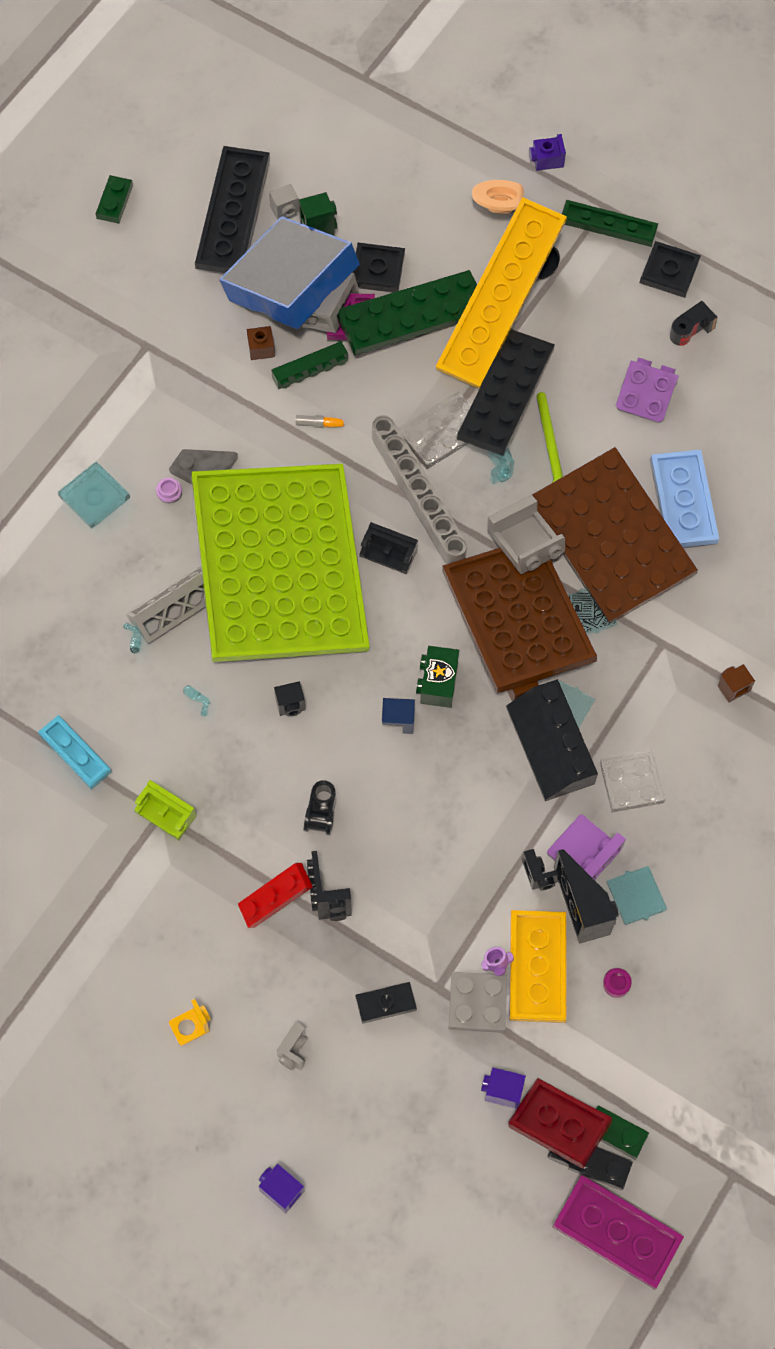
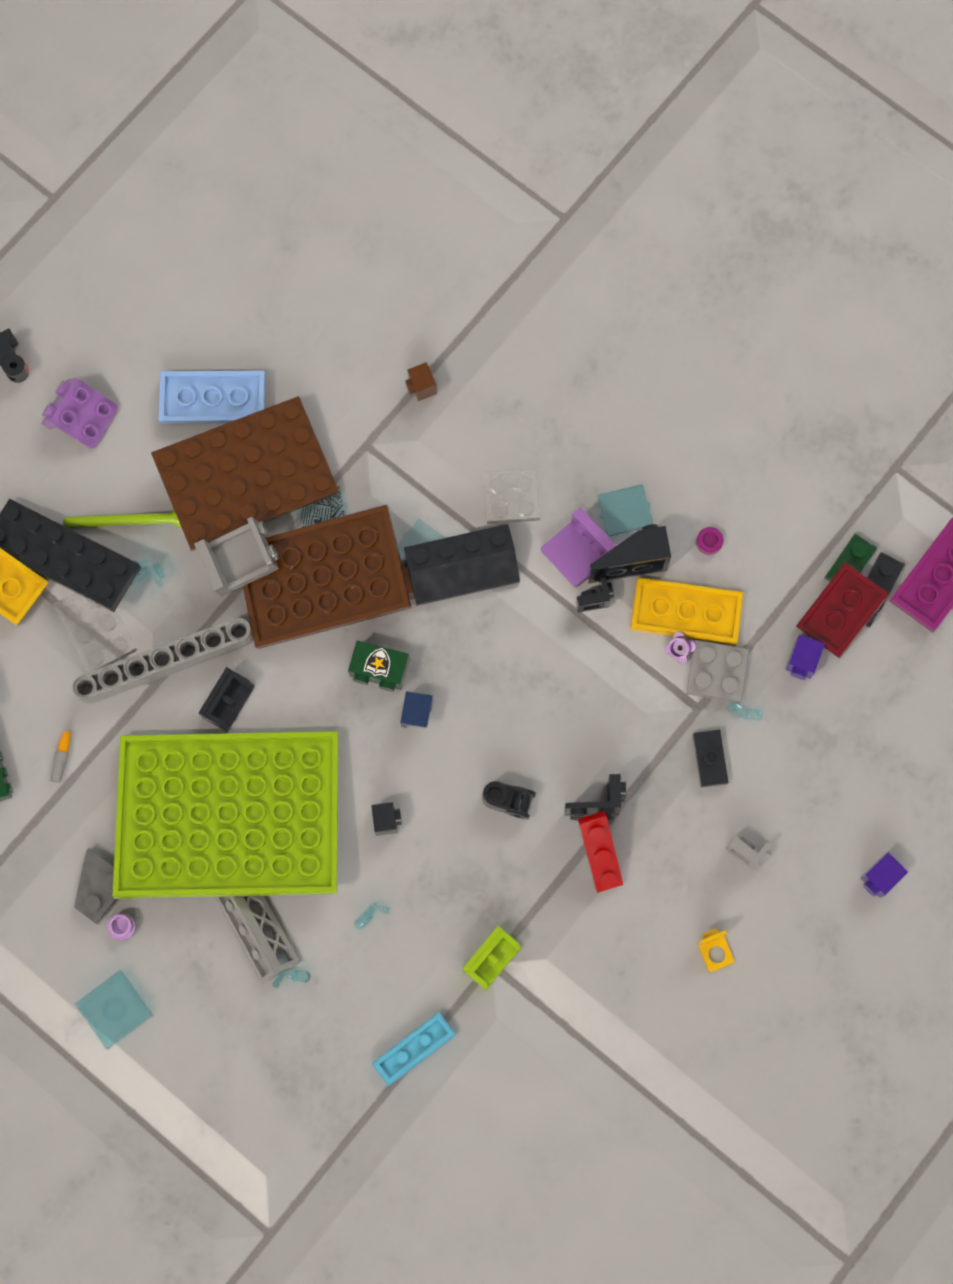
camera: 80 degrees left, 10 degrees up
(437, 1036) = (749, 714): none -> clear light blue piece

